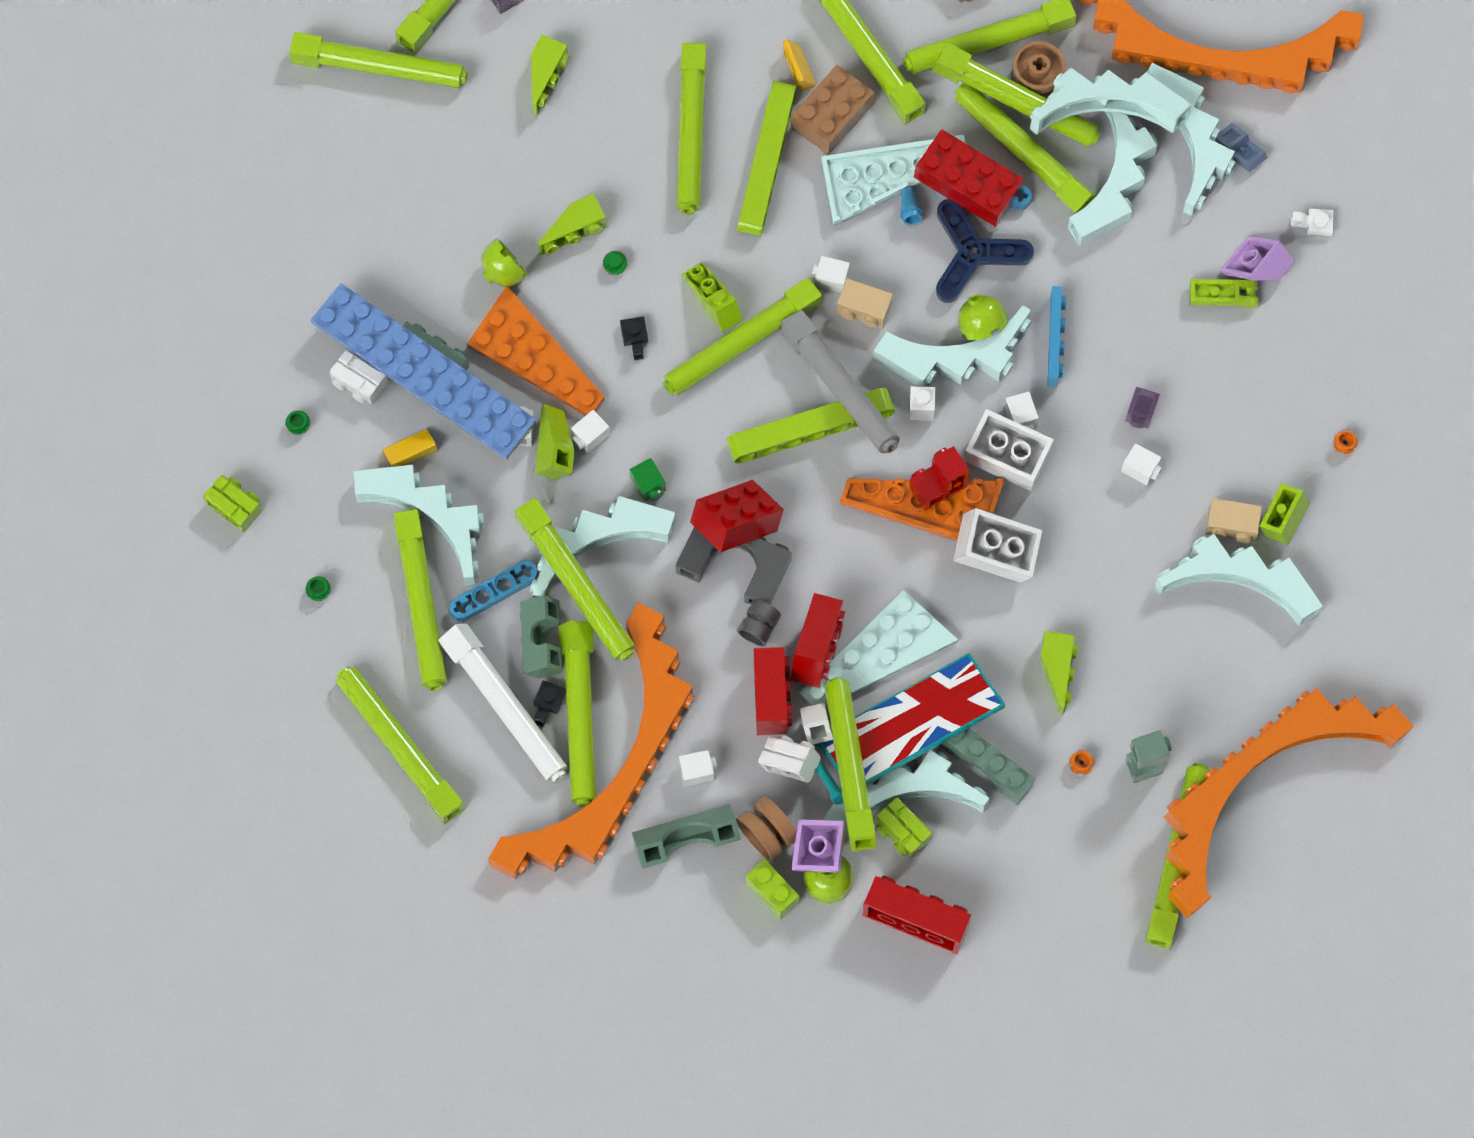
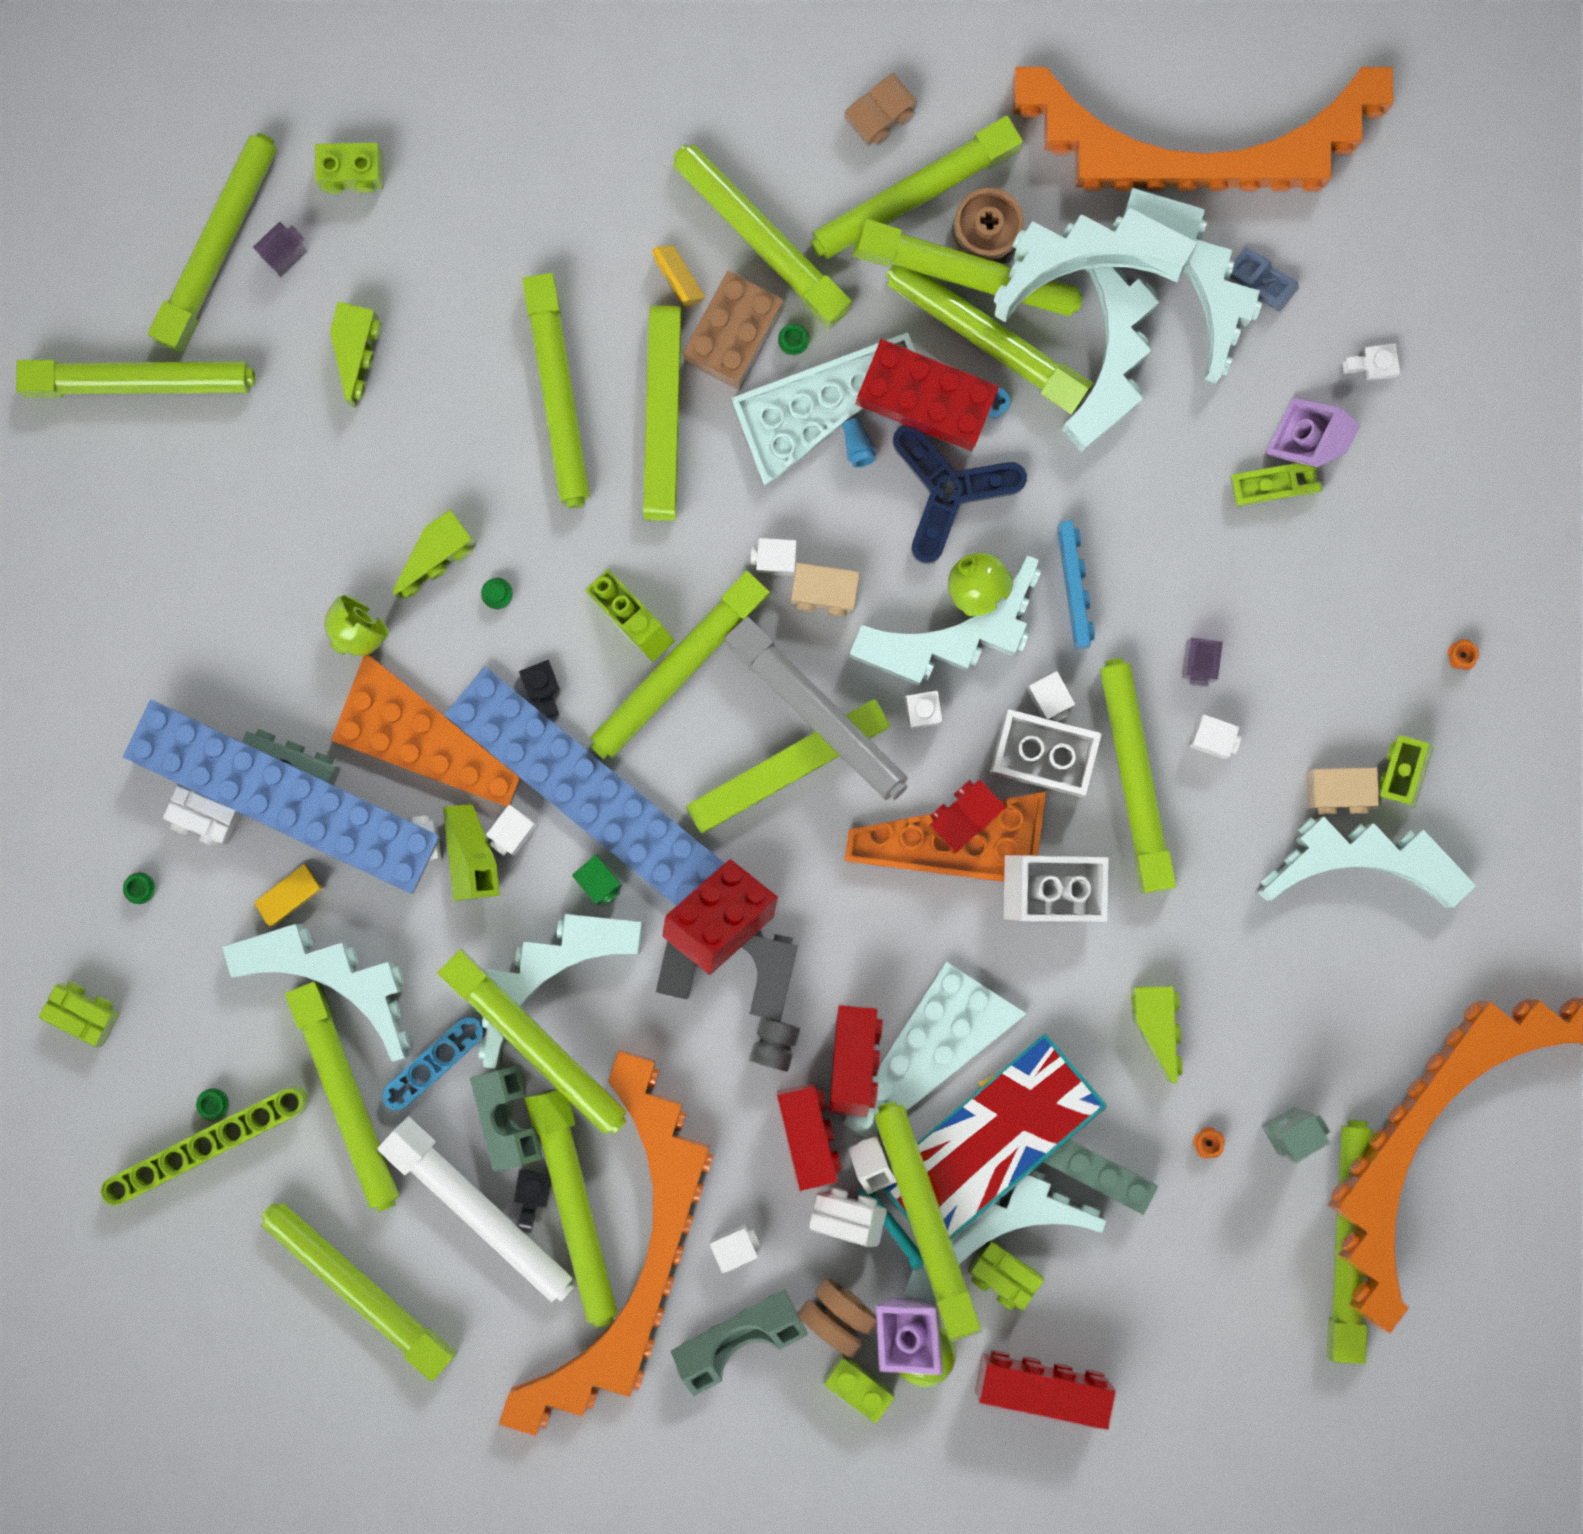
camera: 10 degrees left, 15 degrees up
(319, 618) = (190, 1150): none -> lime beam
(647, 409) = (582, 787): none -> medium blue plate
(876, 125) = (793, 339): none -> green plate
(1076, 484) = (1151, 854): none -> lime brick

